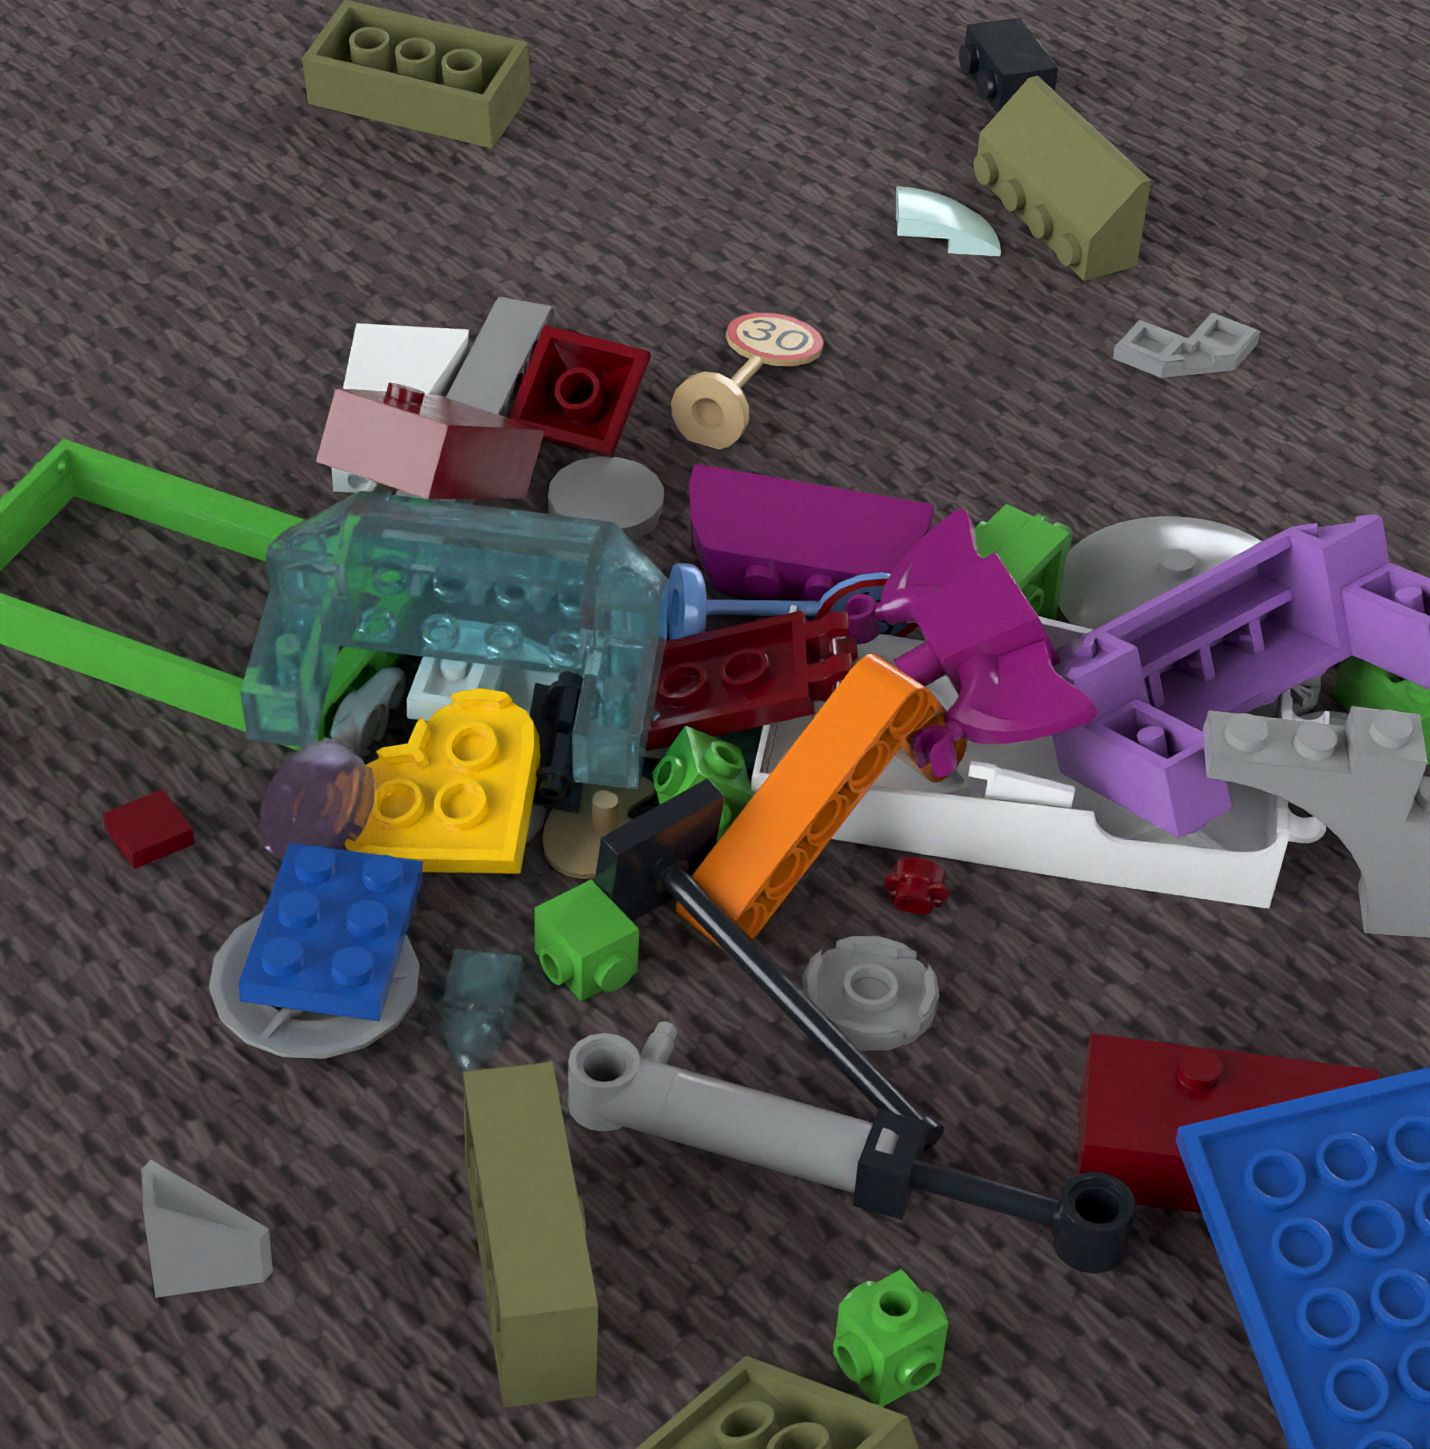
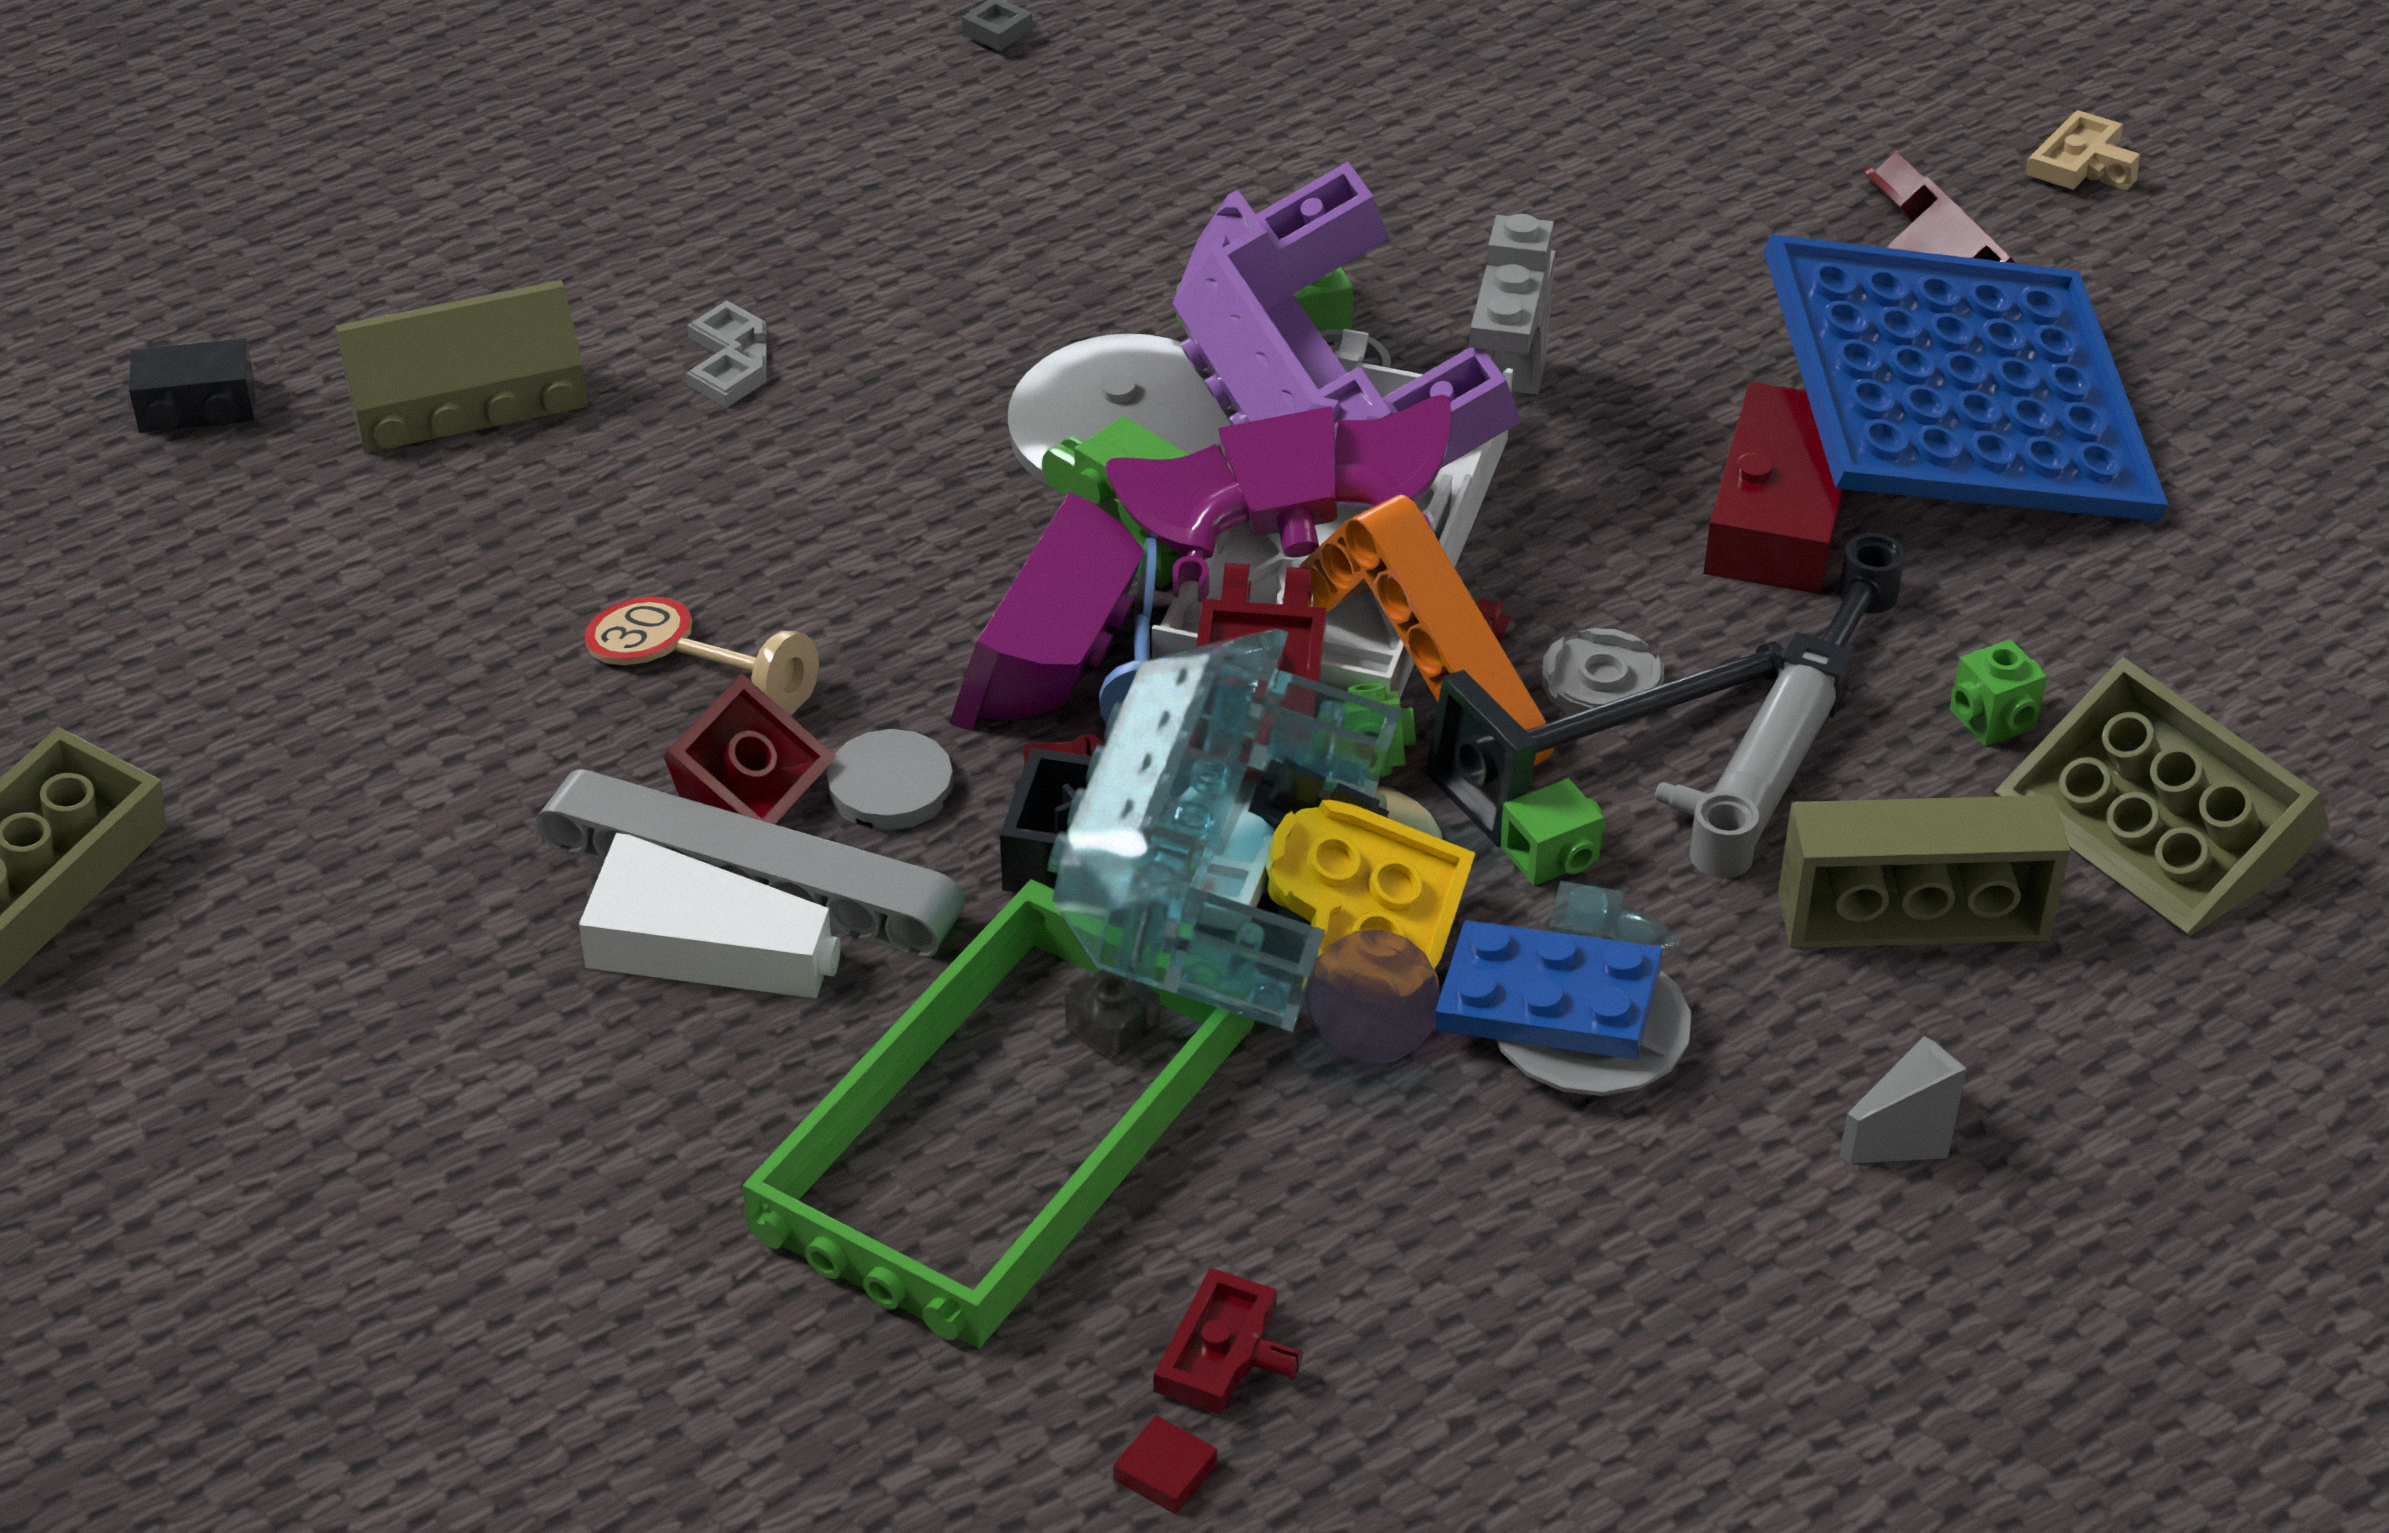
camera: 80 degrees left, 0 degrees up
(148, 828) = (1357, 1151): dark red tile -> none
(429, 444) = (953, 803): brick -> none
(938, 216) = (458, 483): light aqua brick -> none

